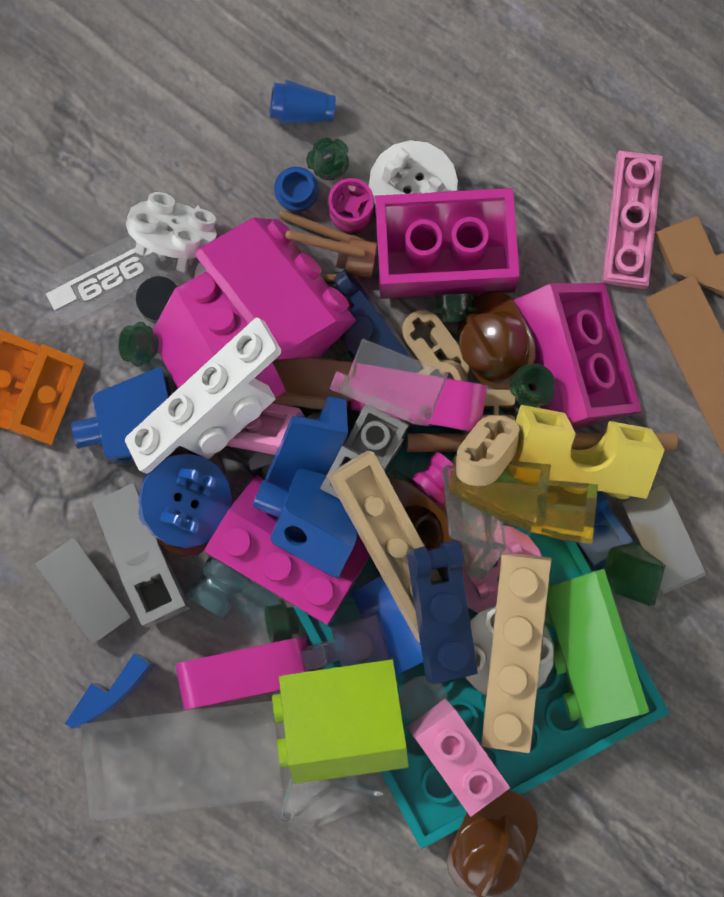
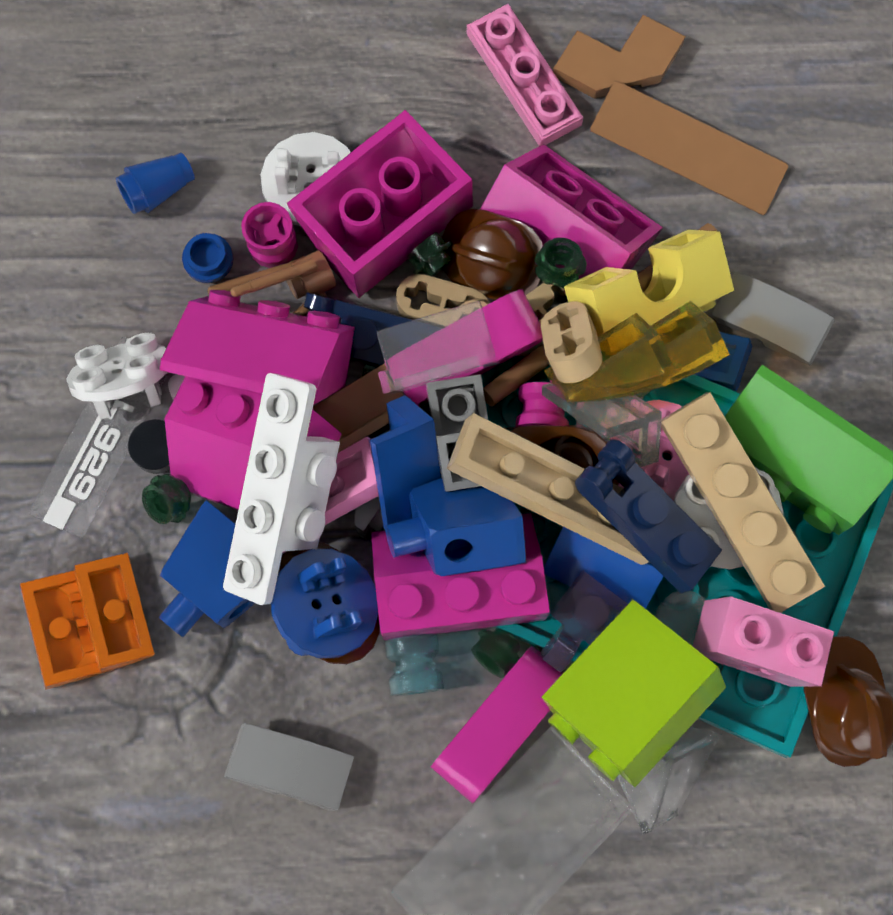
camera: 40 degrees left, 5 degrees down
(100, 701) = (387, 857): blue slope -> none
(140, 559) = (320, 691): light grey slope -> none
(333, 166) = (226, 214): clear green plate -> none
(634, 573) = (778, 353): clear green slope -> none

